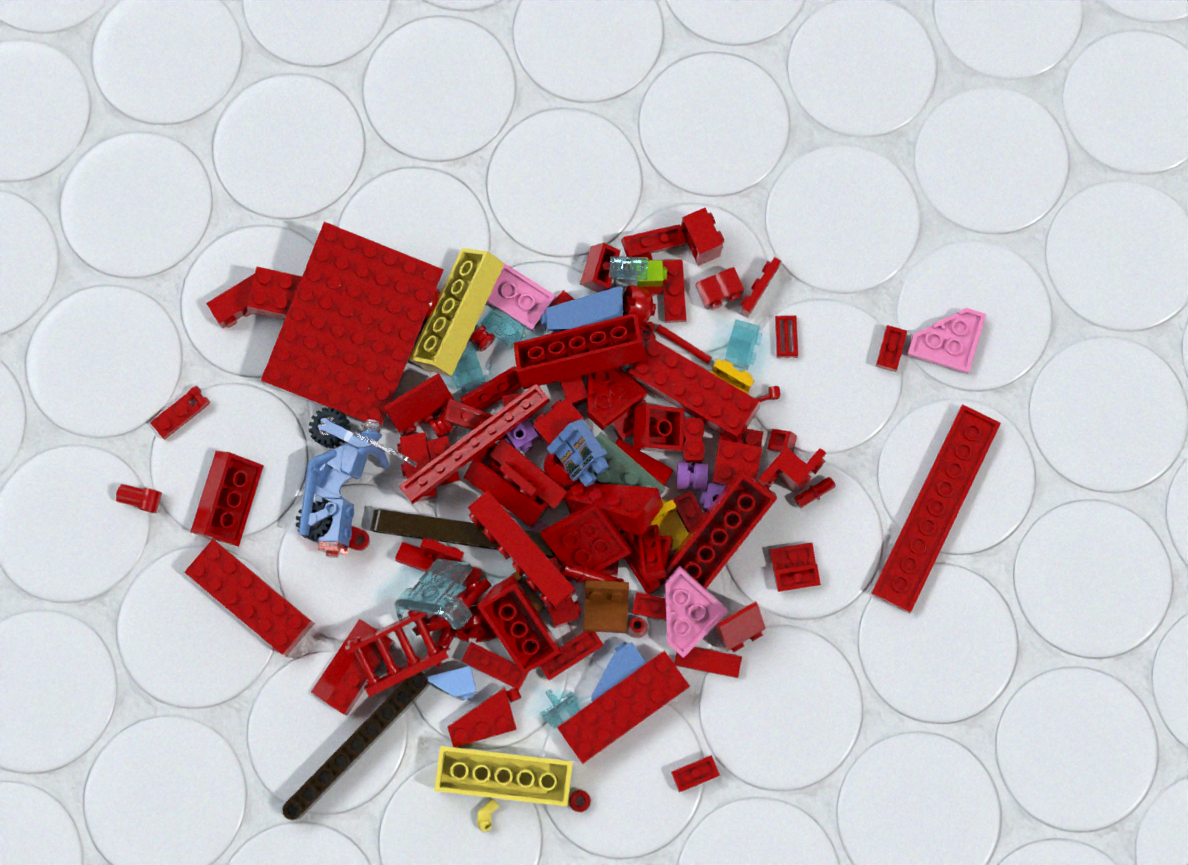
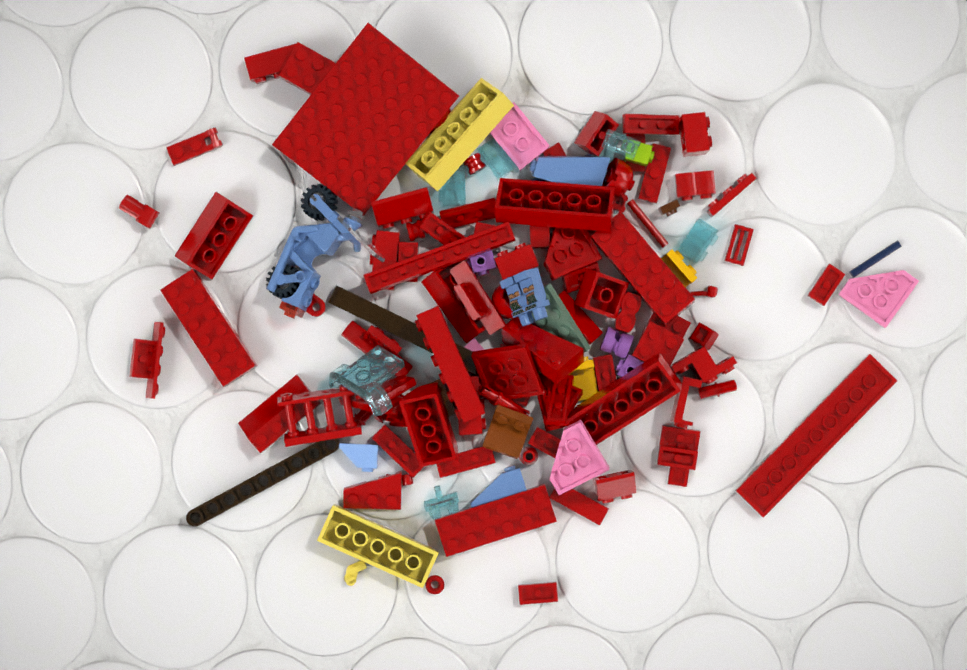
camera: 15 degrees right, 10 degrees up
(190, 652) = (146, 359): none -> red bracket
(701, 321) = (670, 208): none -> reddish brown plate
(782, 534) = (680, 401): none -> red panel
(804, 598) = (678, 476): none -> red tile
(932, 307) = (874, 259): none -> dark blue bar

